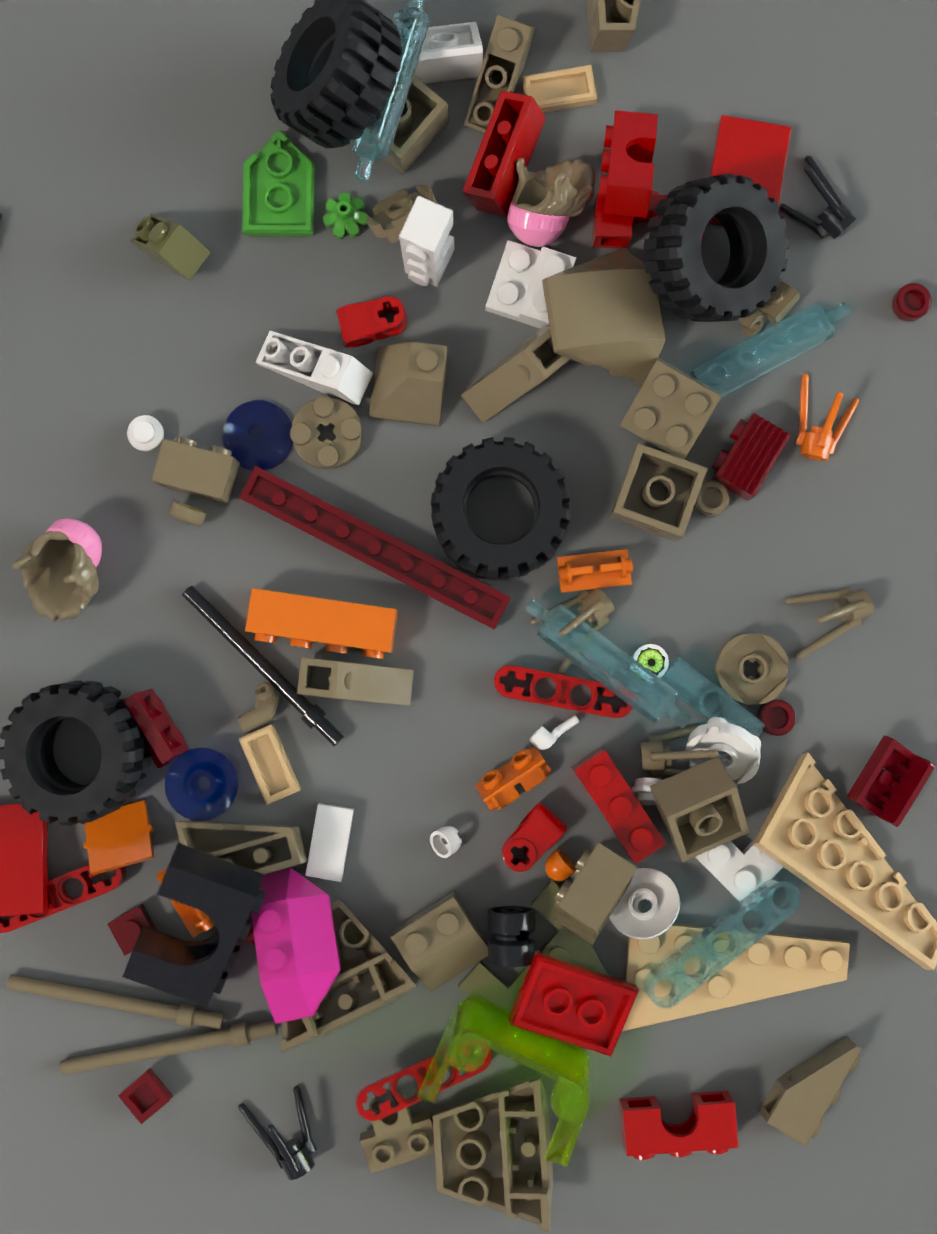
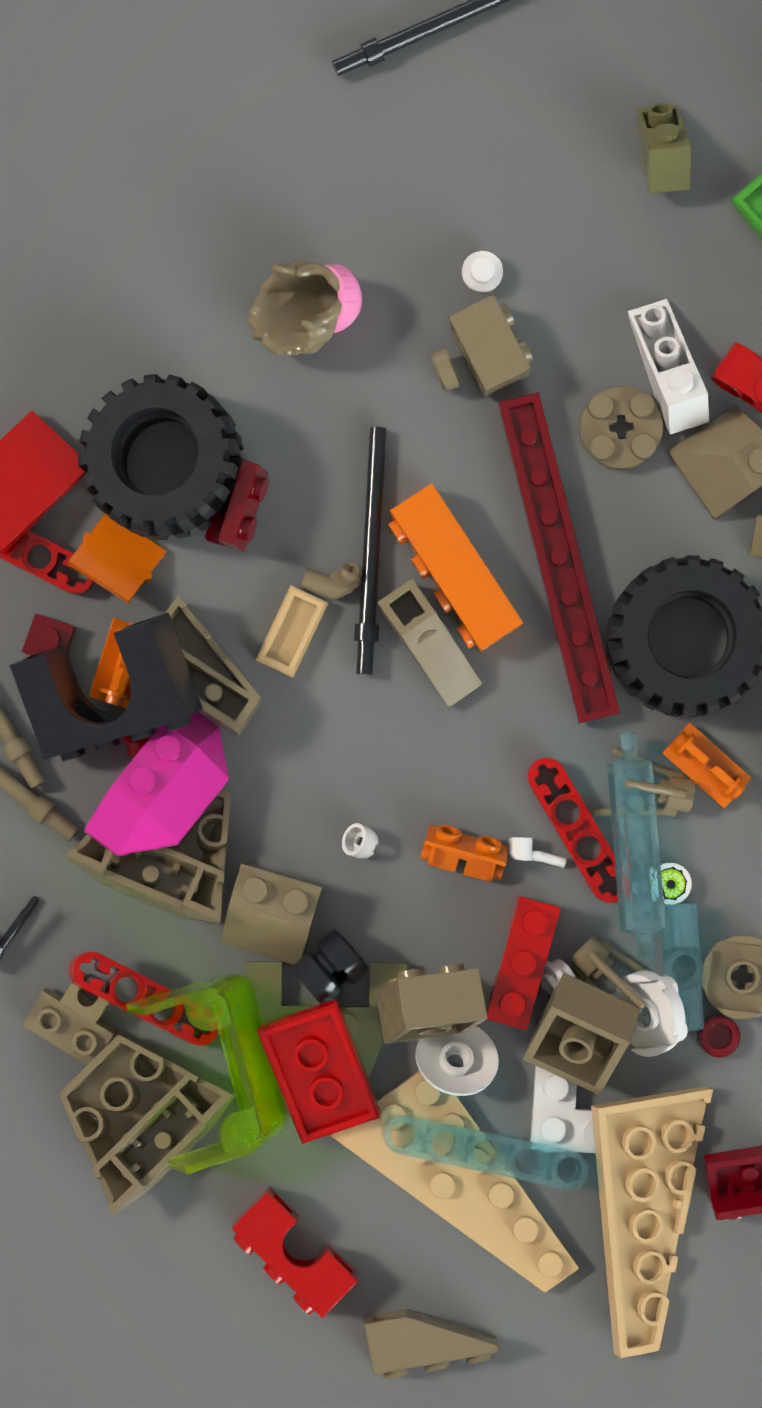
camera: 50 degrees right, 0 degrees up
(184, 790) = (212, 570): clear blue dish -> none
(274, 442) = (563, 390): clear blue dish -> none
(329, 842) = (270, 742): white tile -> none
(538, 832) = (436, 913): red piece -> none
(559, 866) = (424, 956): orange hinge -> none

